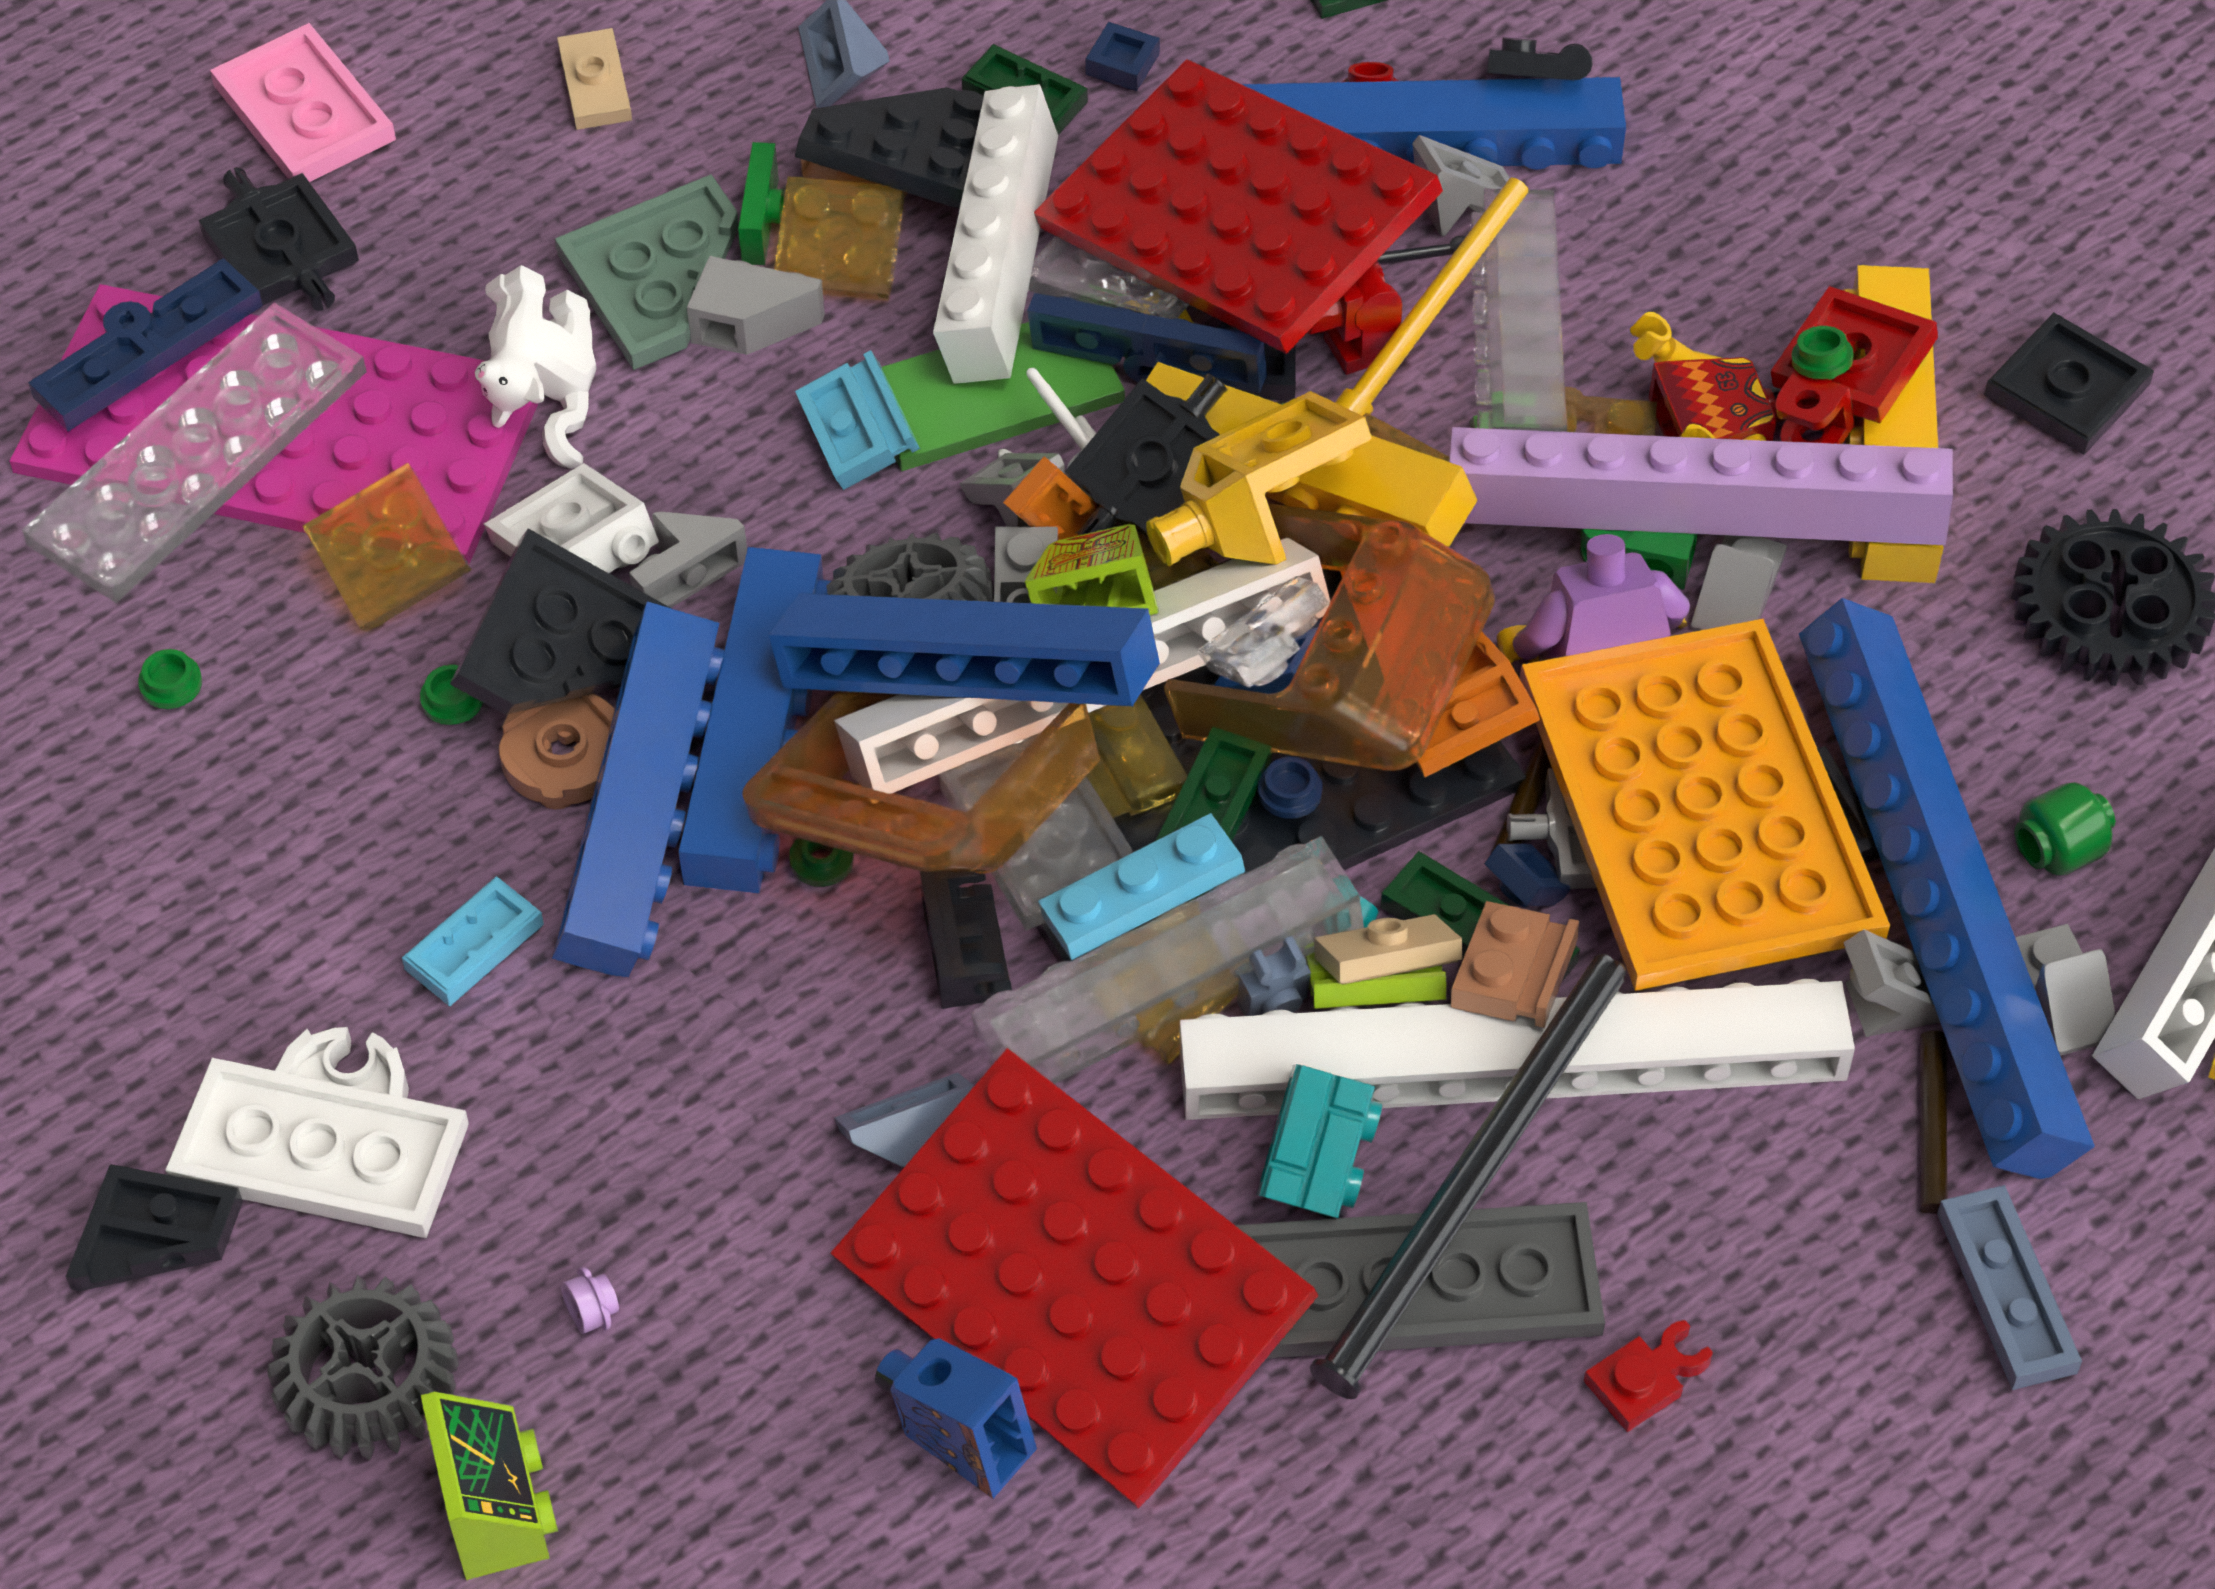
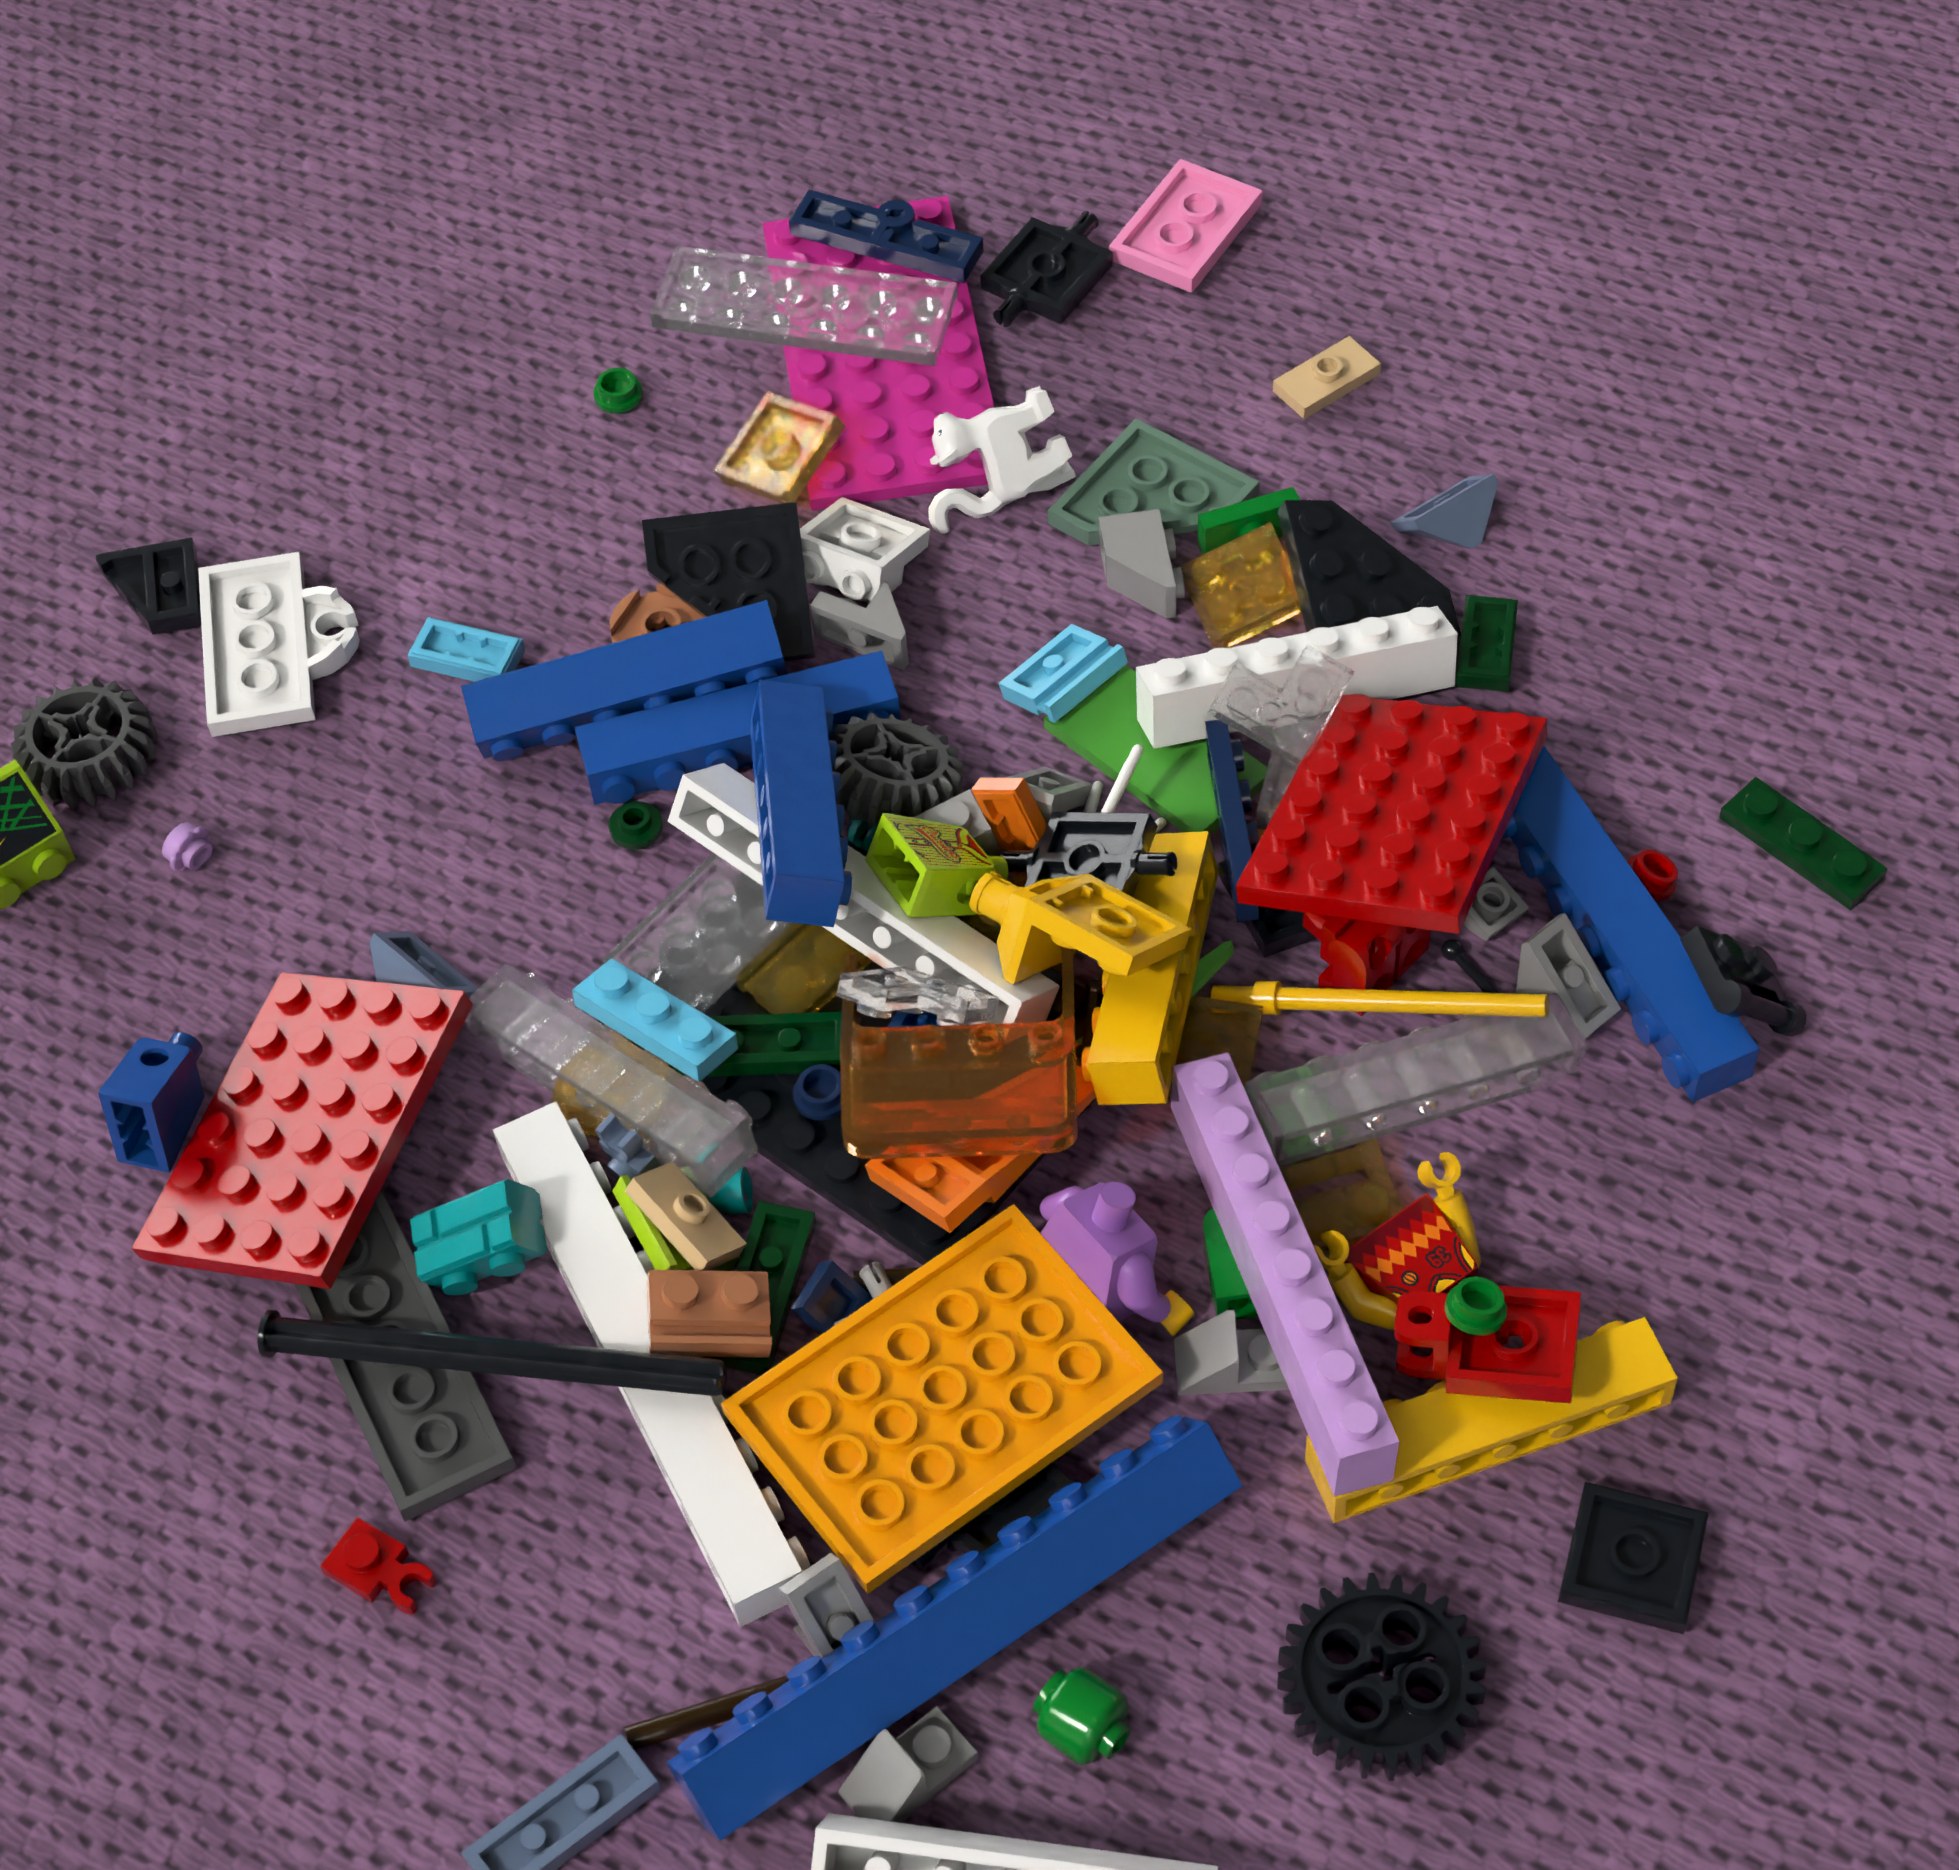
camera: 70 degrees right, 0 degrees up
(807, 798) = (634, 856): clear orange windscreen -> none
(963, 937) = (580, 938): black hinge -> none
(1062, 237) = (1286, 717): none -> clear plate
(1122, 56) = (1567, 692): dark blue plate -> none

